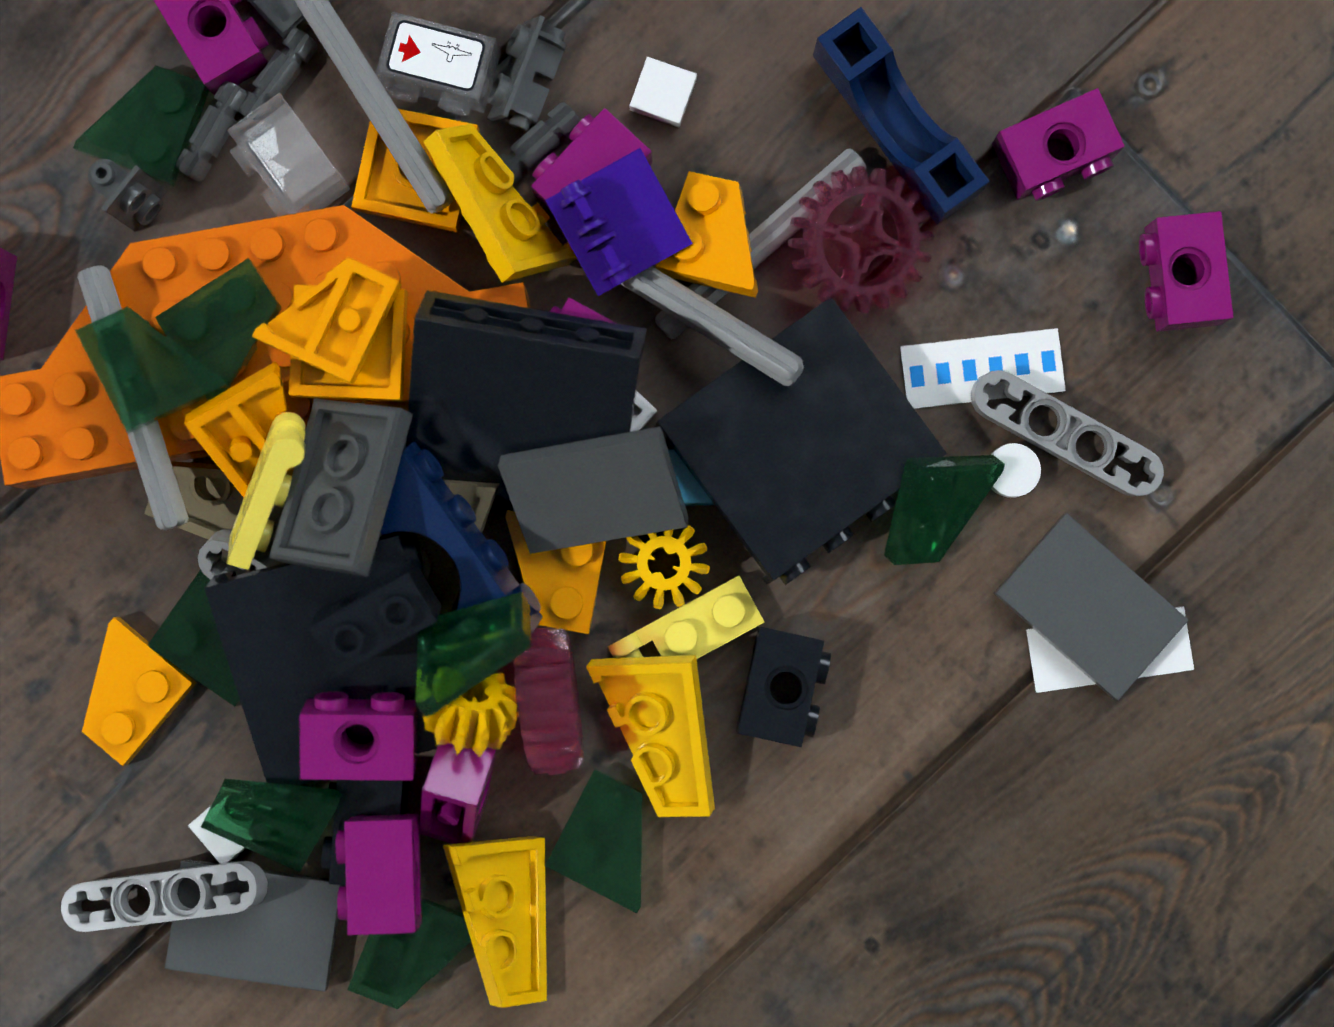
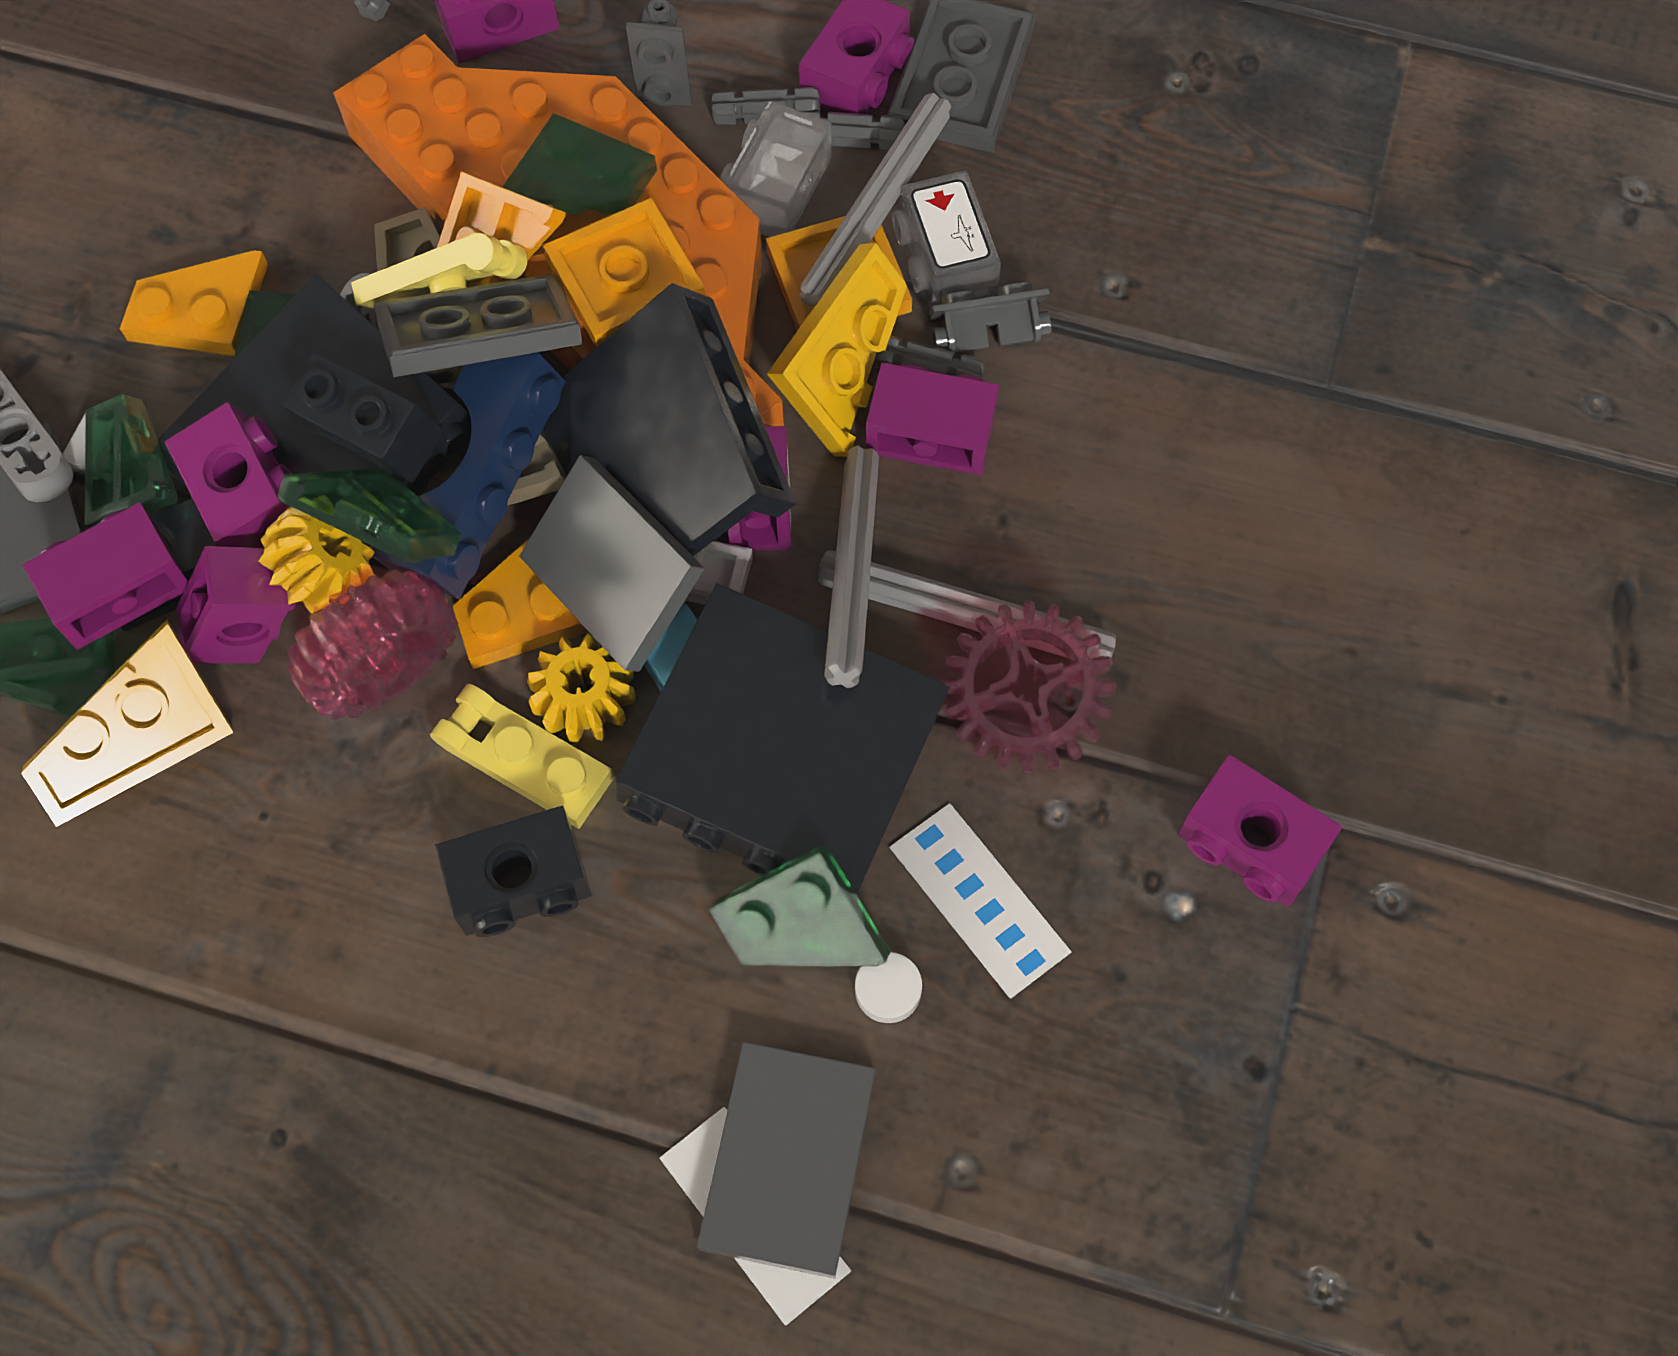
camera: 55 degrees right, 20 degrees down
(144, 370) = (493, 117): clear green wing -> none
(147, 441) = (466, 138): light grey axle -> none
(148, 125) = (738, 57): clear green wing -> none
(335, 320) = (635, 237): light orange wing -> none
(604, 841) = (257, 793): clear green wing -> none
(618, 221) = (895, 449): dark purple hinge -> none
(663, 92) = (1055, 444): white tile -> none
(664, 726) = (413, 770): yellow wing -> none
(721, 247) = (939, 551): light orange wing -> none
(871, 83) = (1176, 656): dark blue arch -> none
(1069, 427) = (967, 1020): light grey beam -> none
(1200, 244) = (1250, 1018): magenta brick -> none

